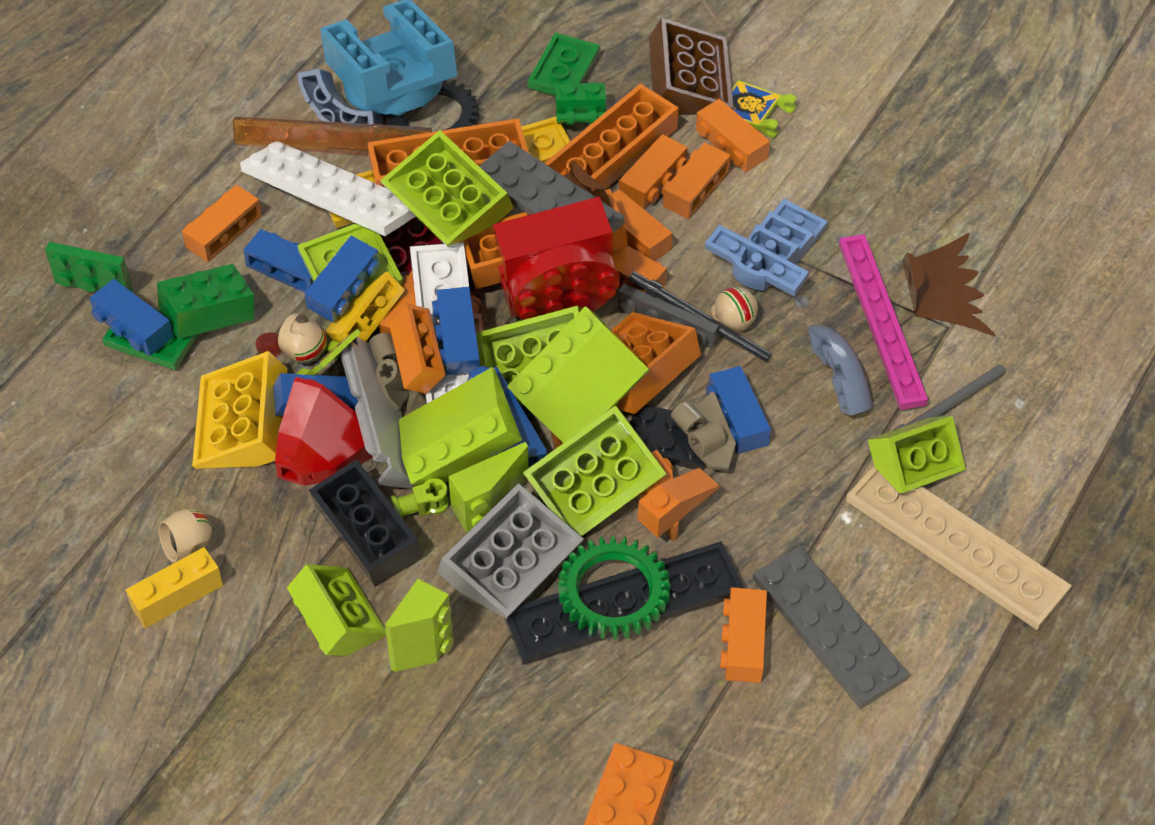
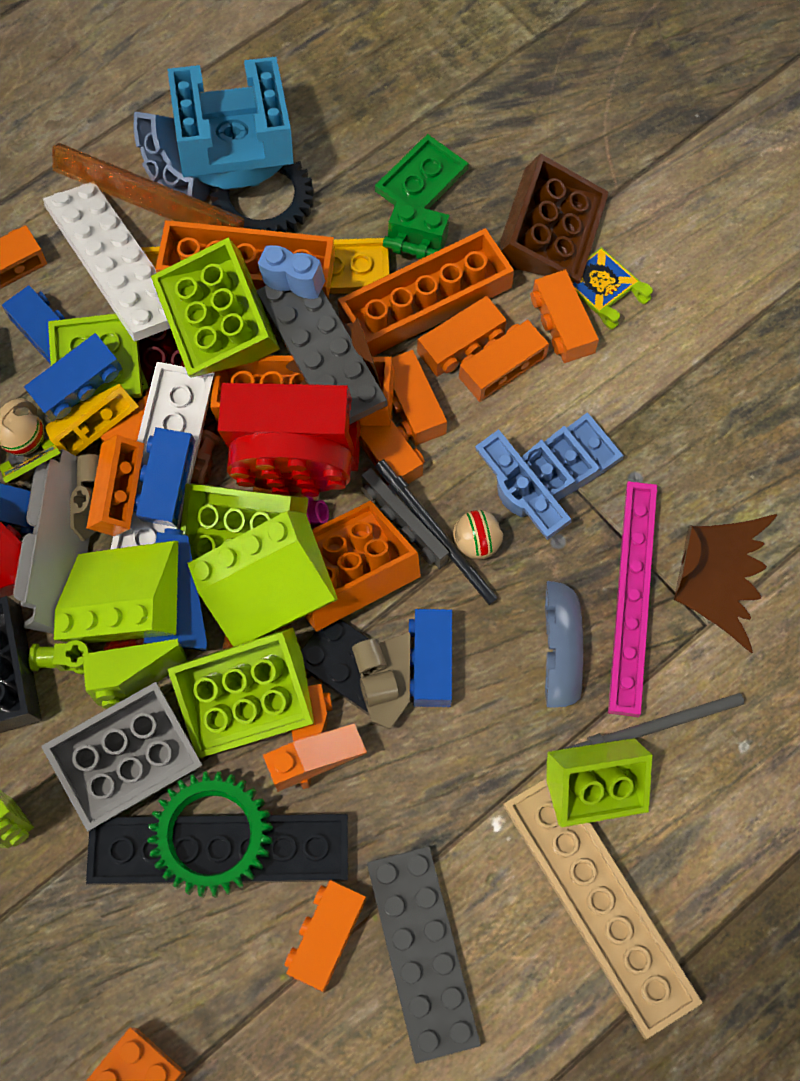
camera: 20 degrees right, 15 degrees up
(503, 143) = (291, 271): none -> medium blue brick

